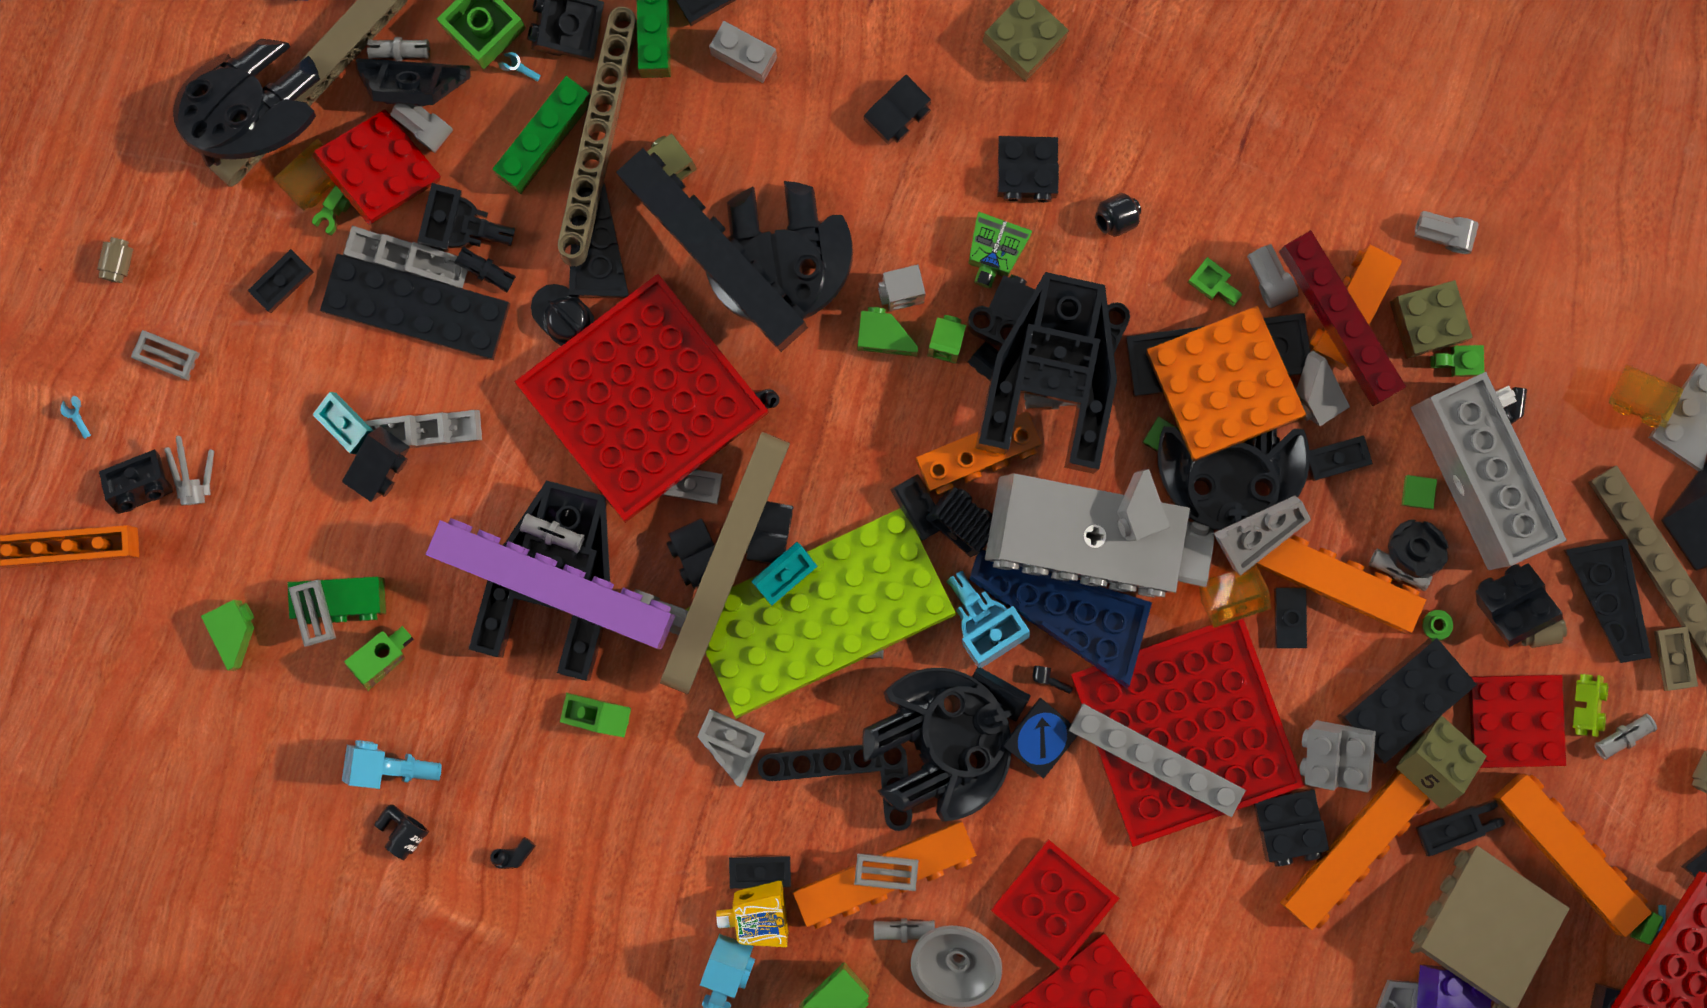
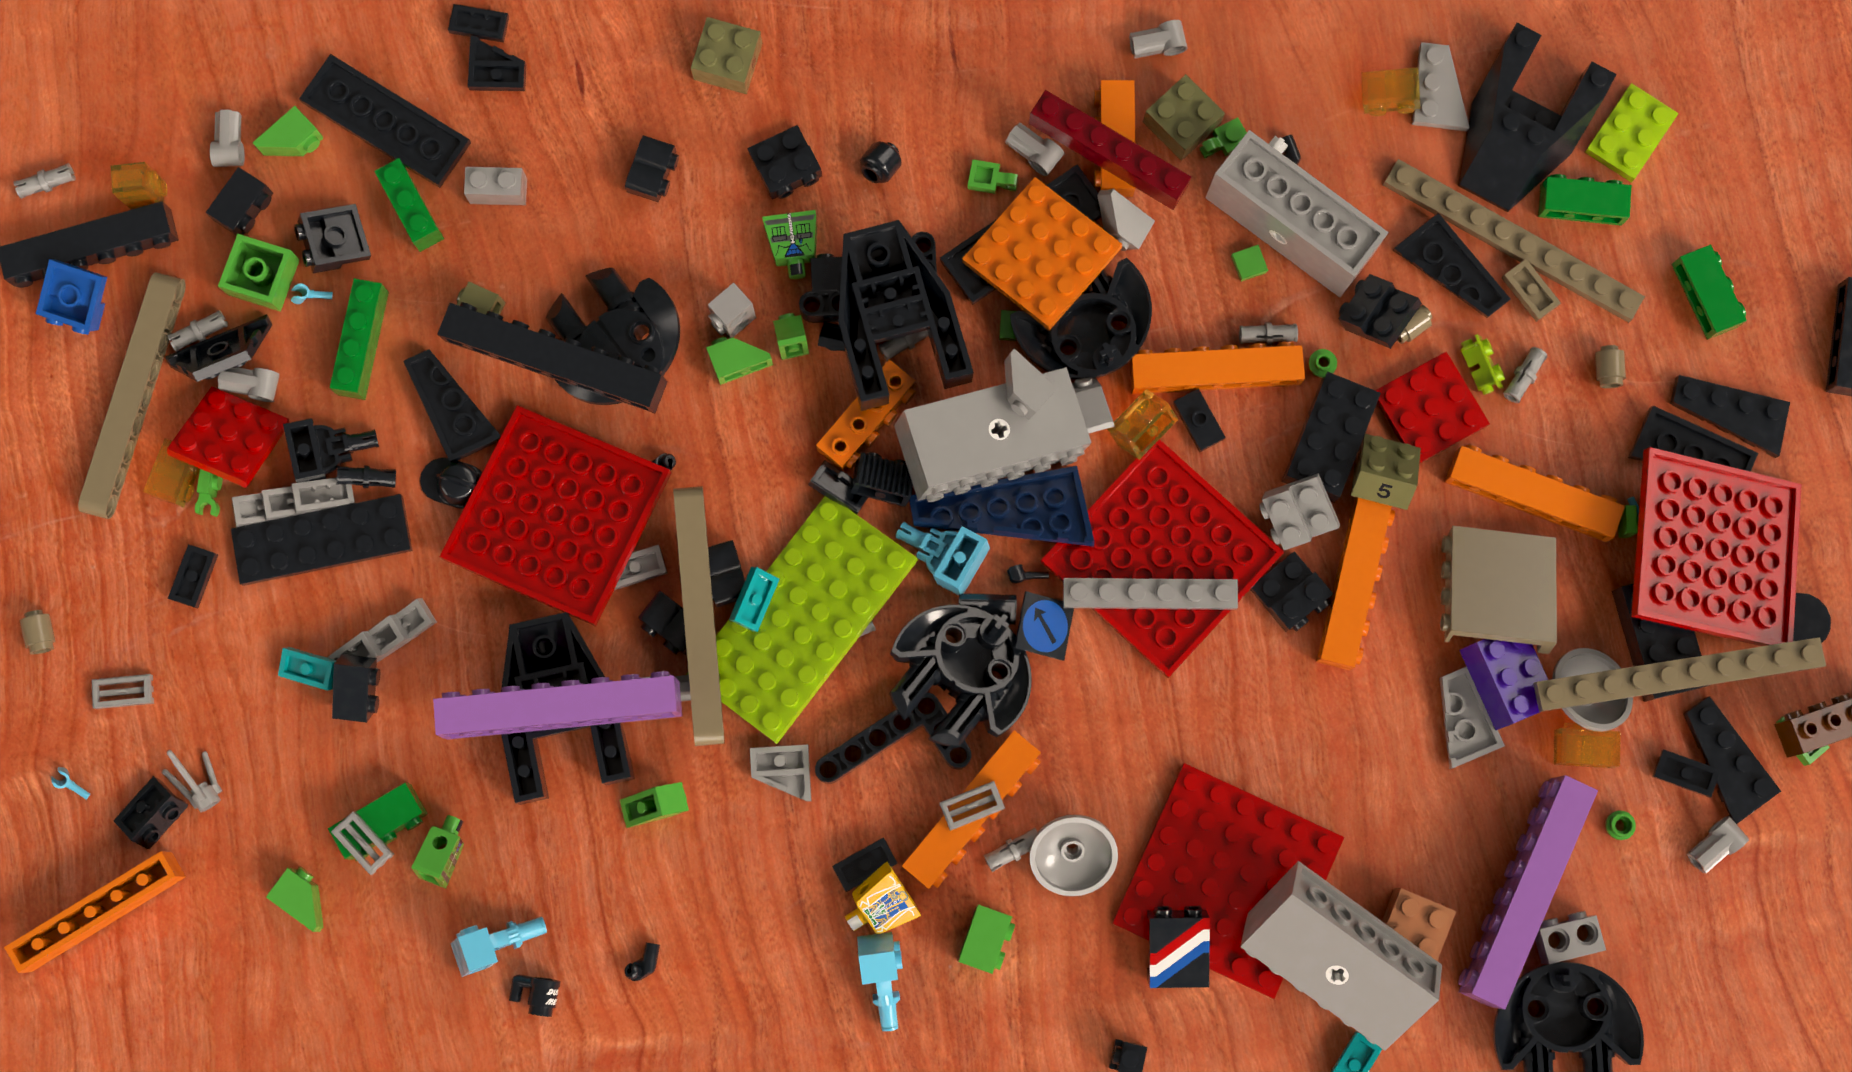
camera: 30 degrees left, 5 degrees down
(230, 114) = (77, 452): black piece -> none
(533, 524) = (556, 663): light grey pin -> none
(597, 122) = (411, 327): dark tan beam -> none
(1054, 904) = (1129, 760): red plate -> none
(1261, 533) = (1136, 359): light grey wing -> none
(1339, 458) = (1169, 268): black plate -> none
(1418, 549) = (1273, 308): black tile -> none
(1457, 828) = (1428, 522): black hinge -> none

